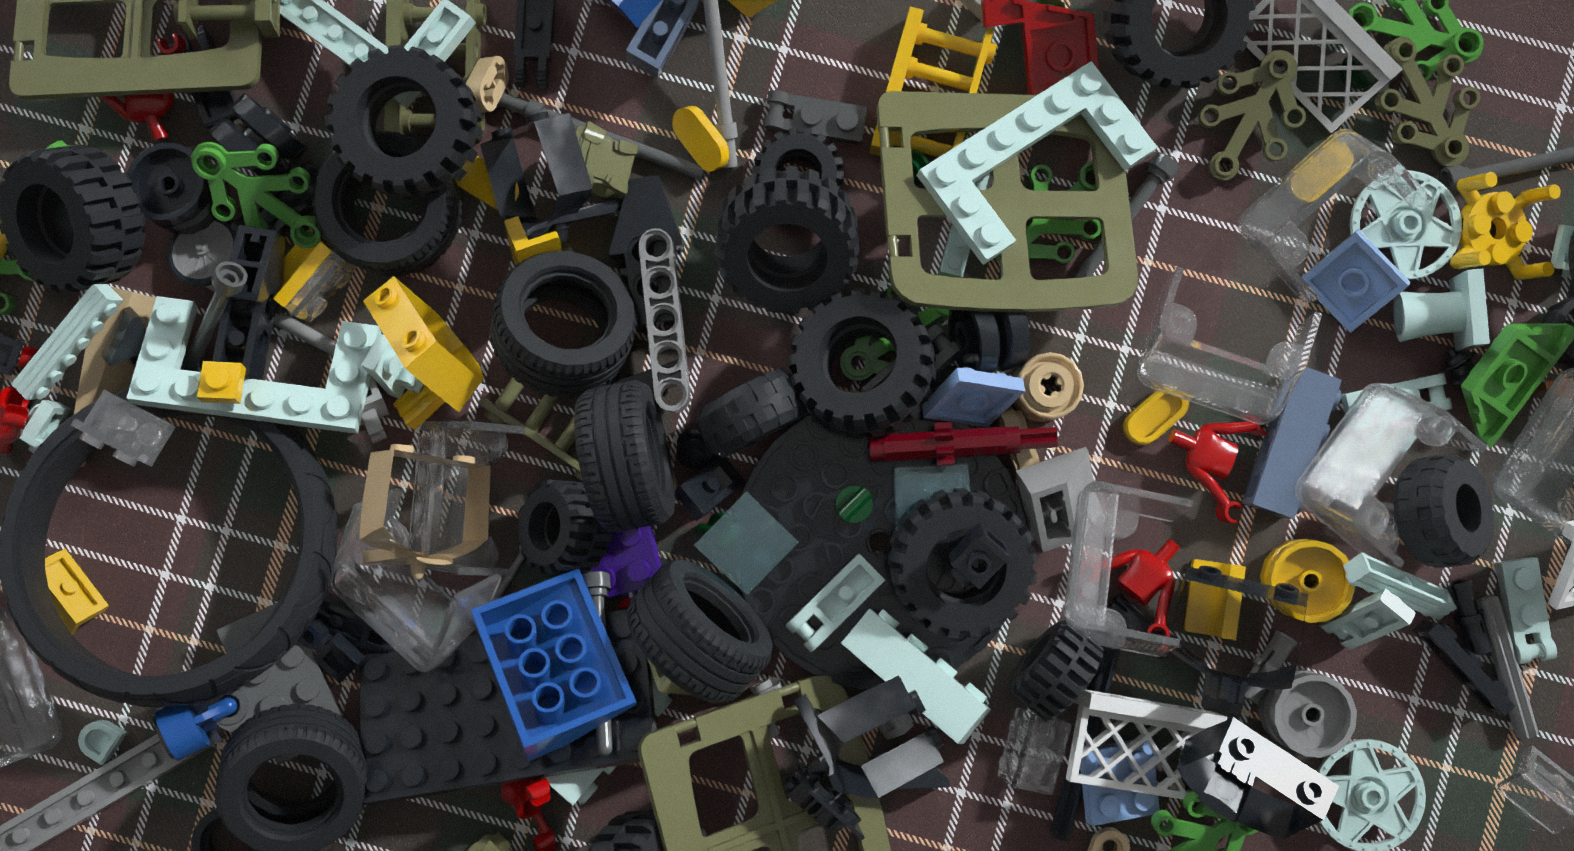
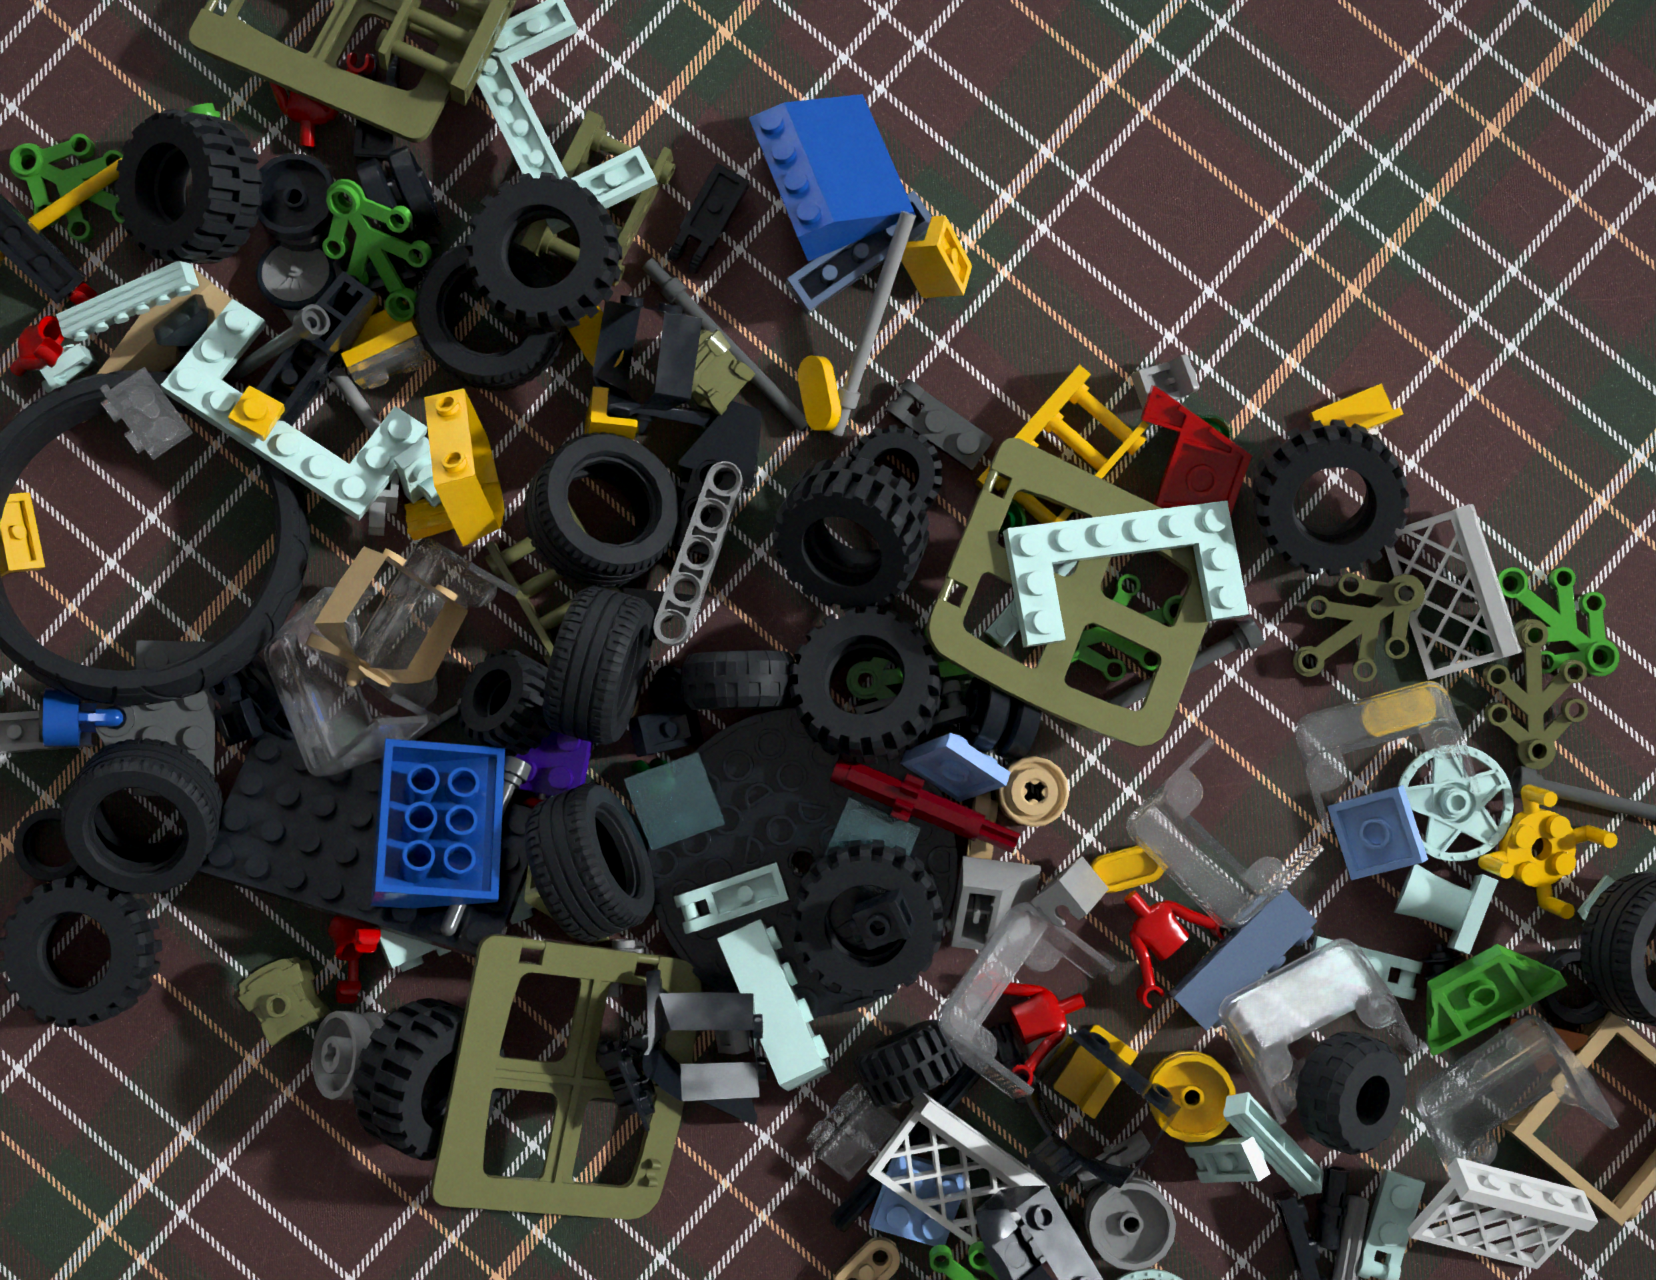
camera: 25 degrees right, 0 degrees up
(488, 82) = (642, 243): tan beam -> none
(854, 504) = (794, 813): dark green plate -> none
(1122, 451) = (1074, 887): none -> light grey hinge

